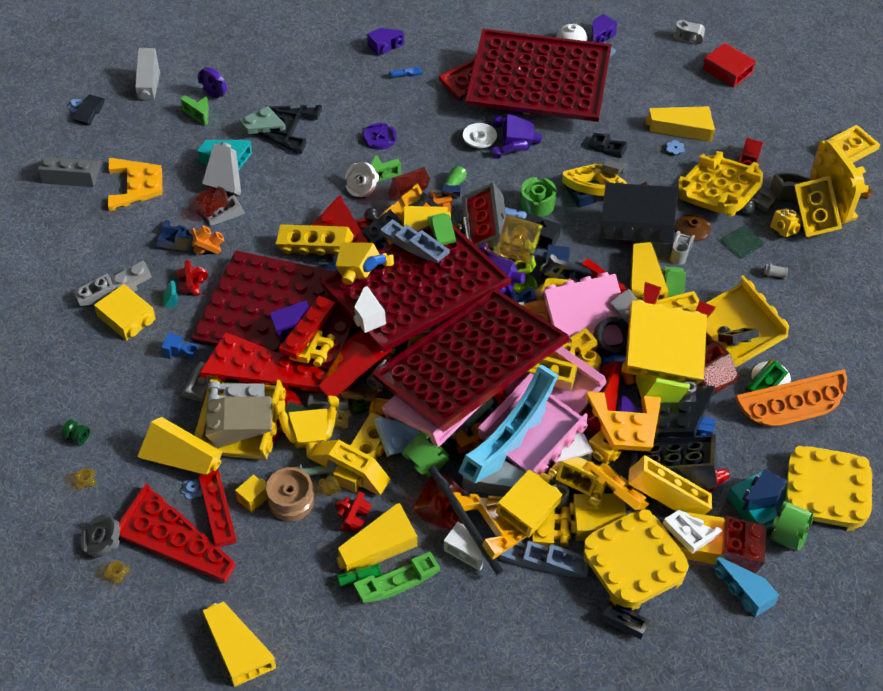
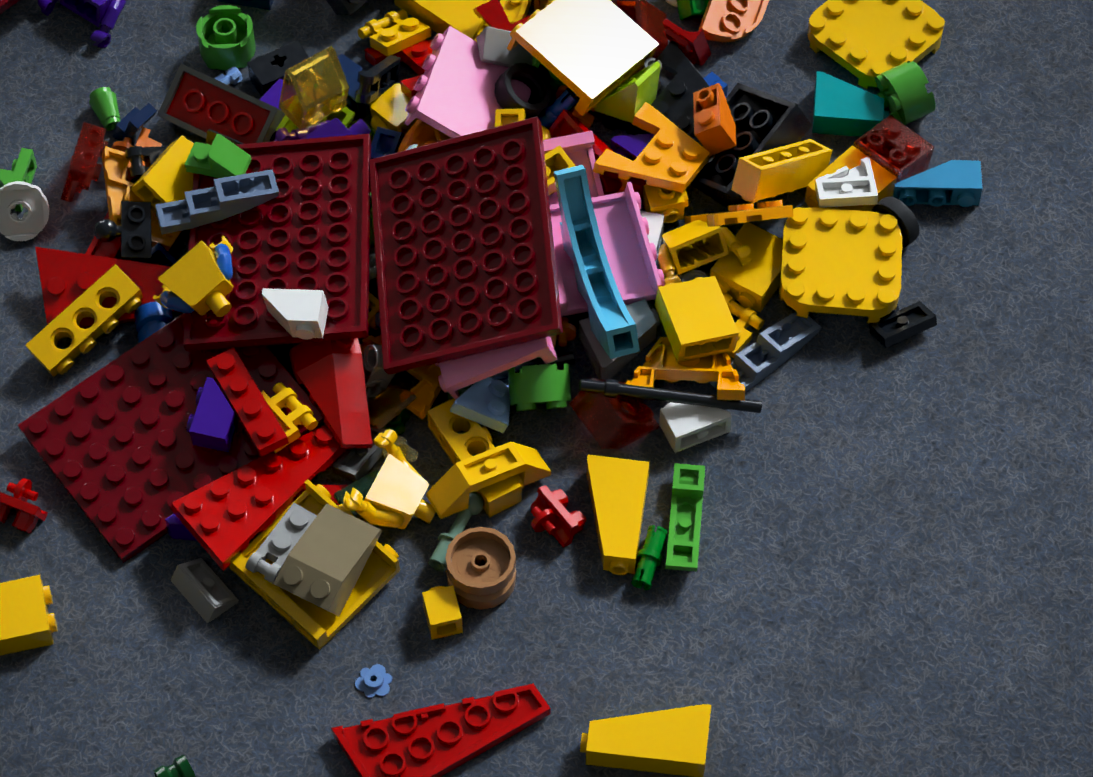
camera: 55 degrees left, 5 degrees up
(170, 296) = (23, 547): teal slope -> none
(174, 346) = (121, 586): blue piece -> none
(178, 448) = (314, 658): yellow slope -> none
(217, 509) = (432, 665): red plate -> none
(330, 485) = (497, 517): clear yellow plate -> none
(479, 135) = (56, 37): white dish -> none
(605, 261) = (394, 32): none -> yellow plate
(673, 434) = (713, 120): none -> orange slope
(693, 573) = (904, 216): none -> black tyre
(724, 399) = (691, 43): none -> red piece
(765, 491) = (850, 84): dark blue slope -> none

